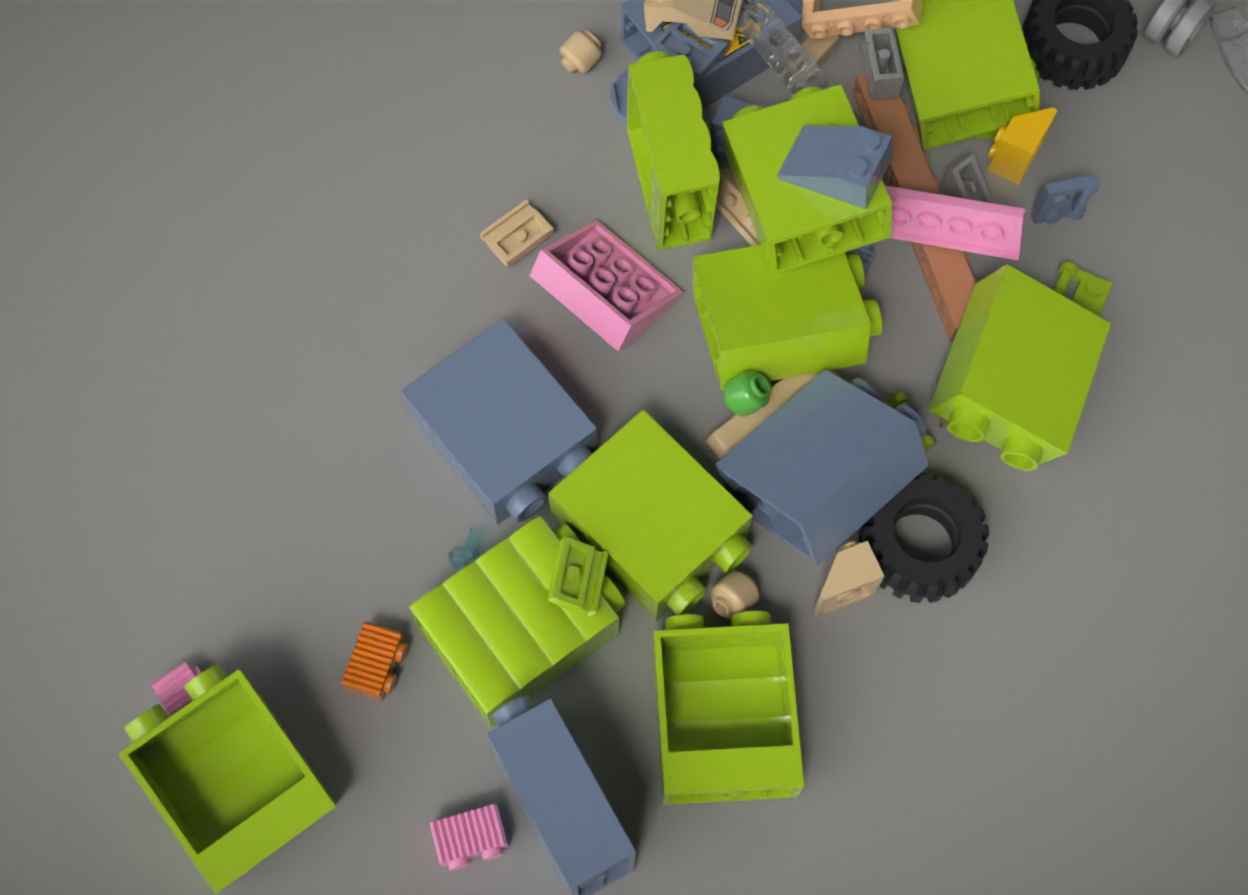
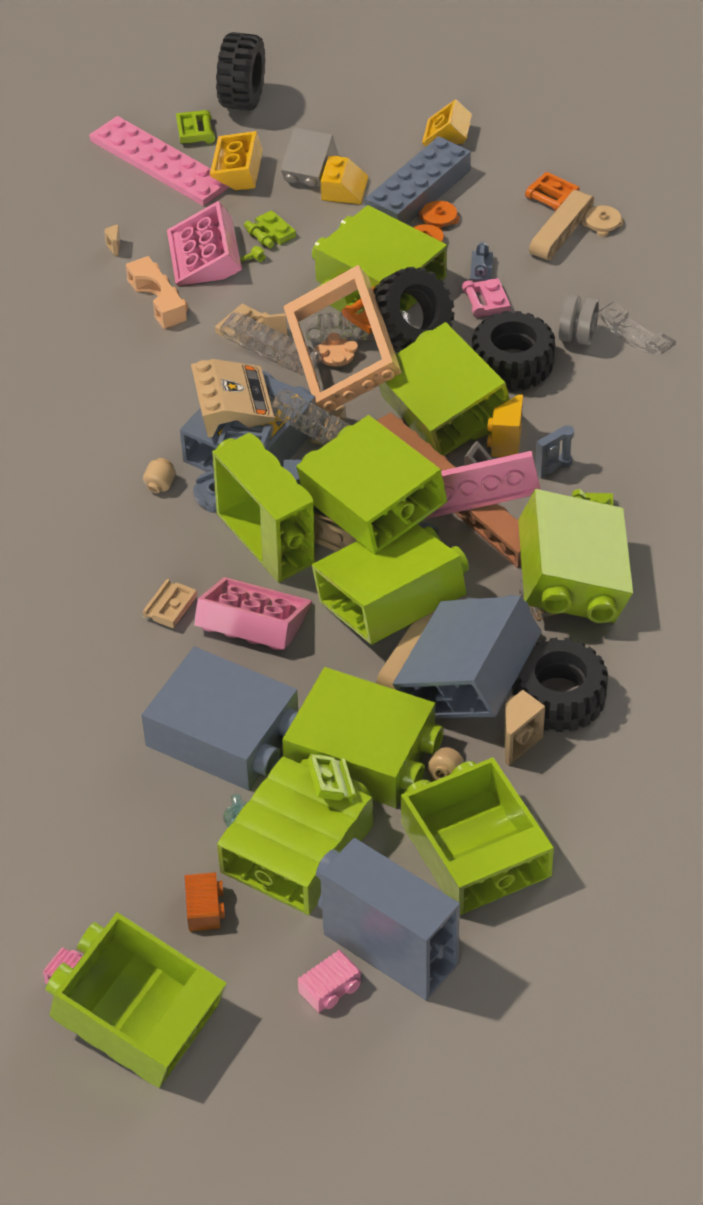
camera: 20 degrees left, 20 degrees down
(747, 393) = (392, 636): bright green head -> none
(838, 162) = (391, 456): sand blue slope -> none
(882, 63) = (386, 406): light grey brick -> none

